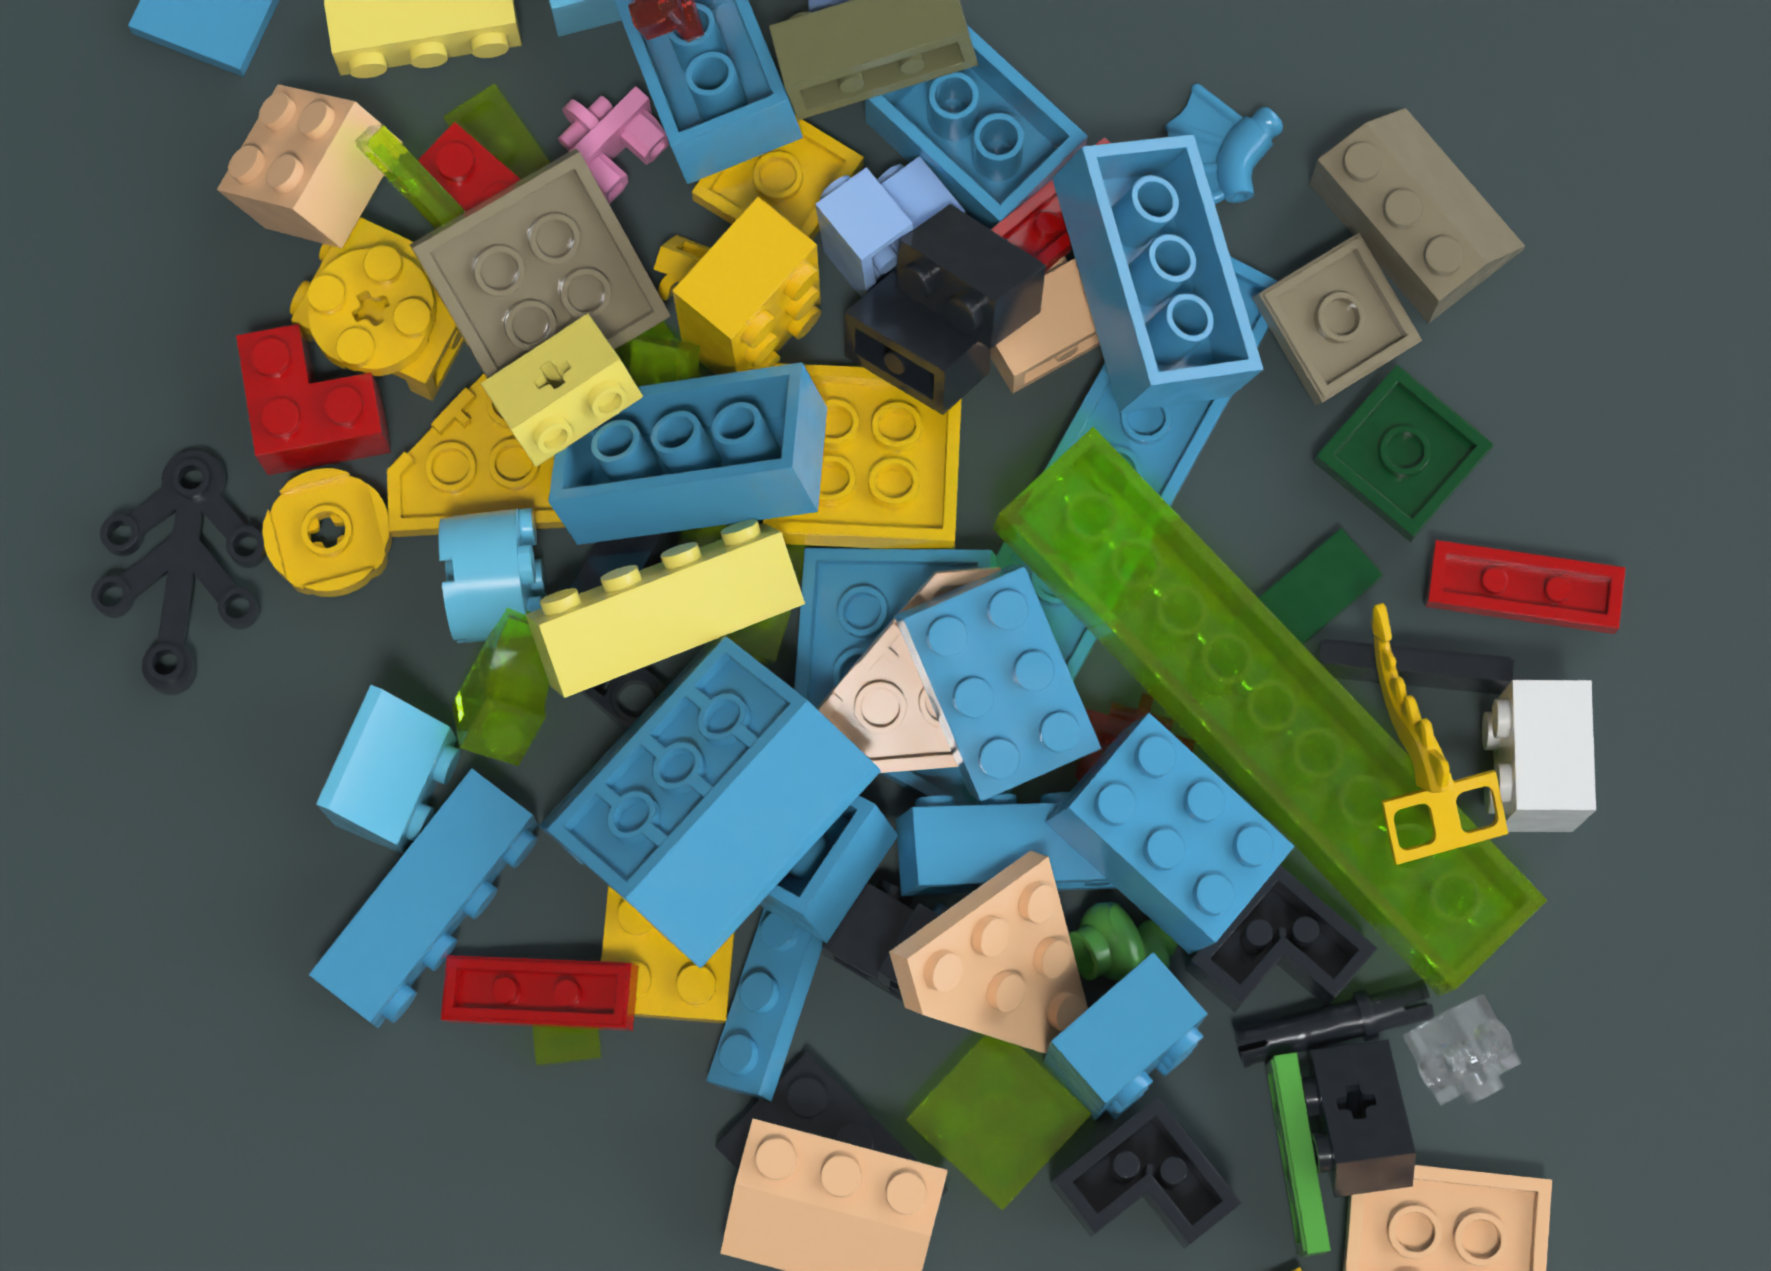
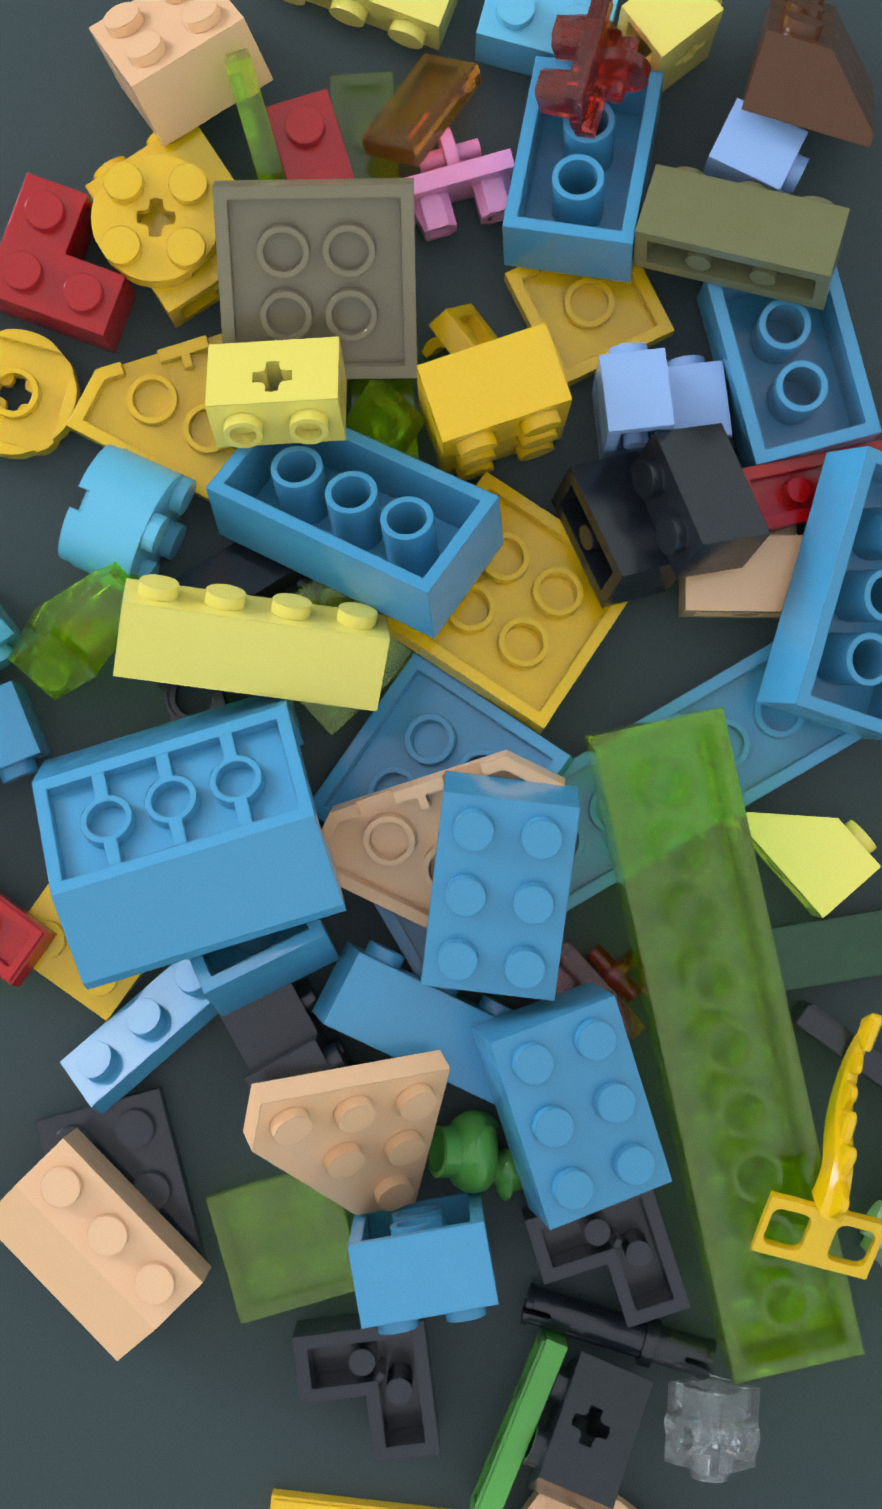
camera: 30 degrees right, 10 degrees up
(540, 98) = (421, 109): none -> clear orange tile
(1250, 519) = (814, 856): none -> light yellow slope

